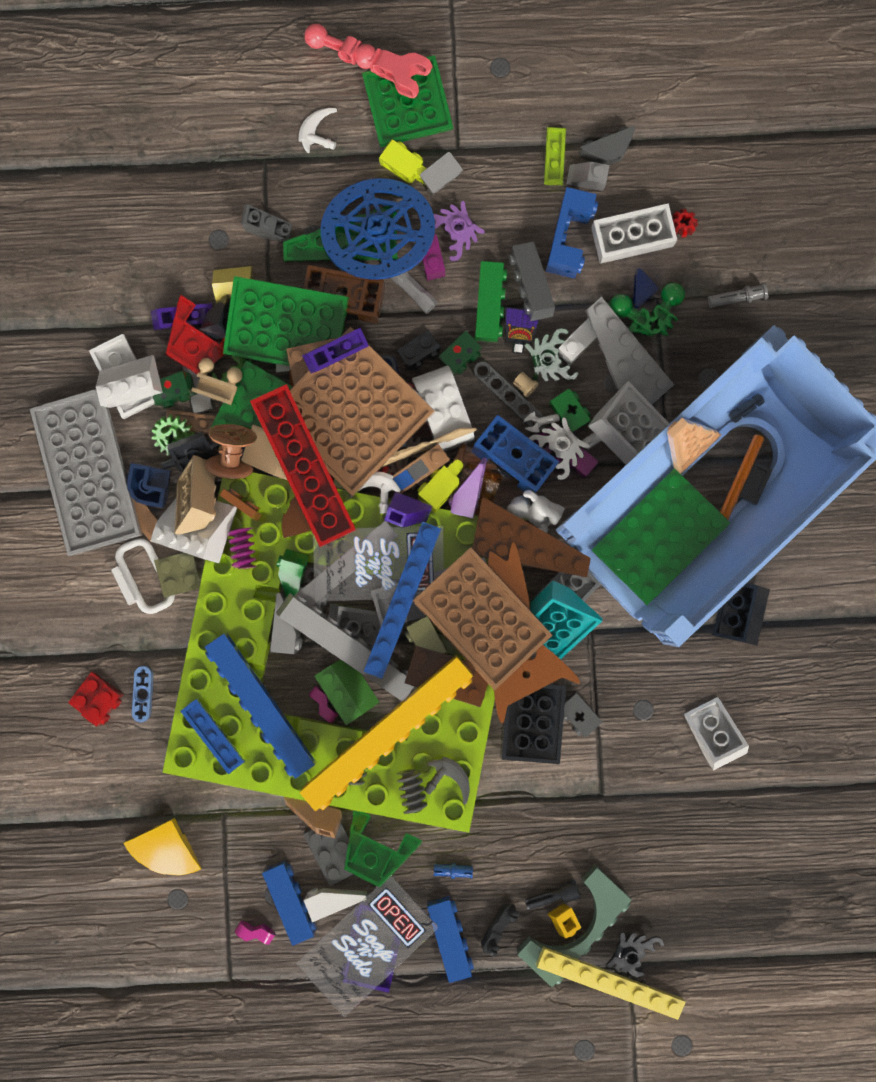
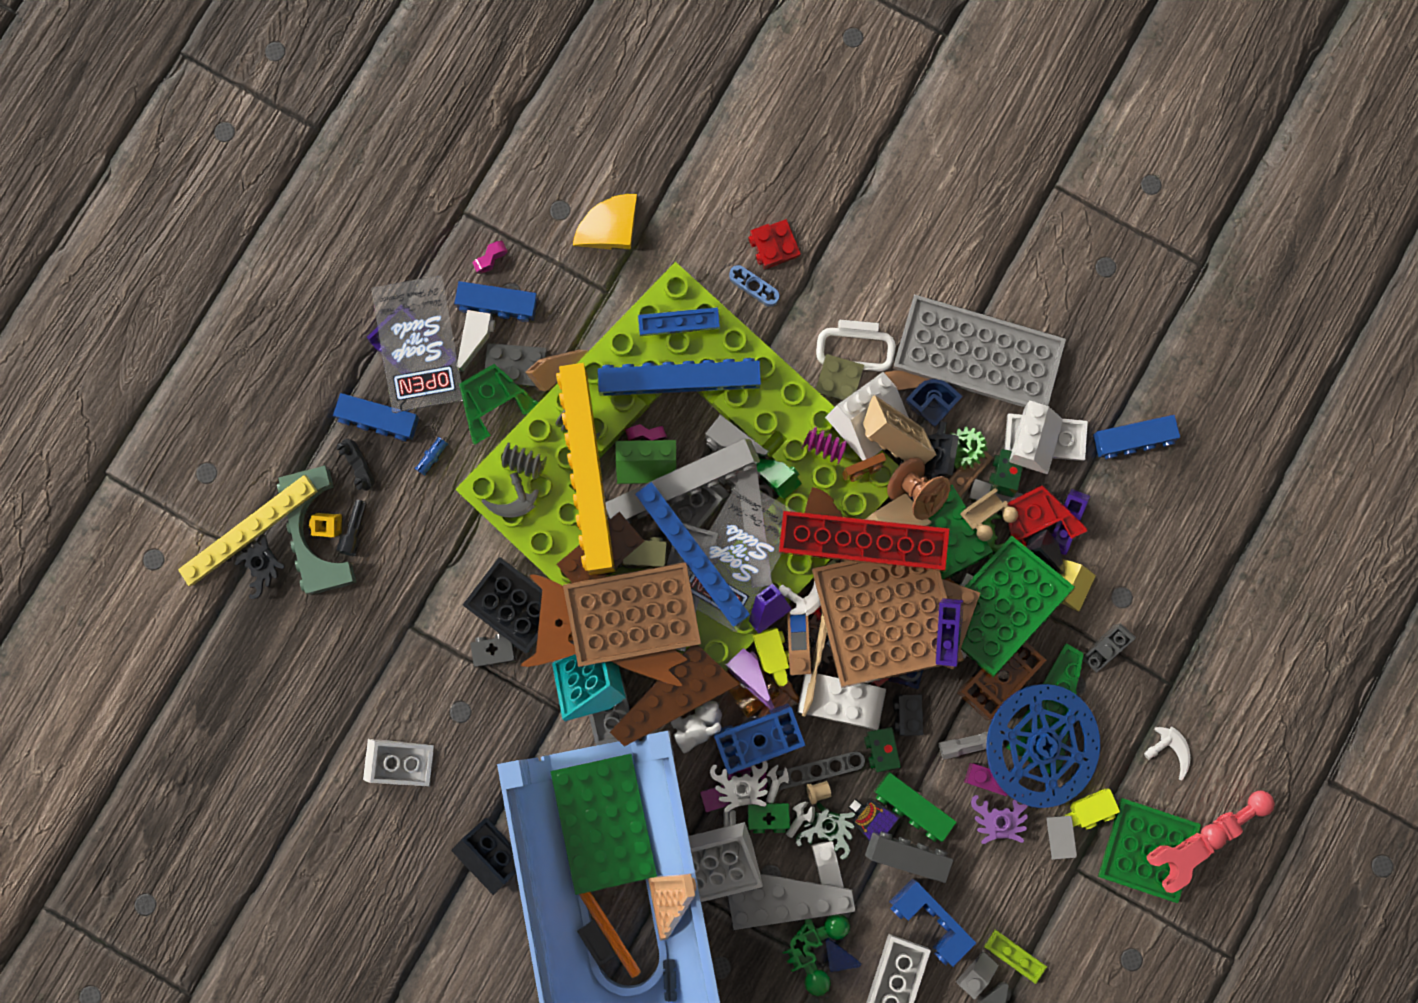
camera: 120 degrees right, 5 degrees down
(77, 304) = (1136, 436): none -> blue brick
(554, 385) = (800, 818): none -> white bar

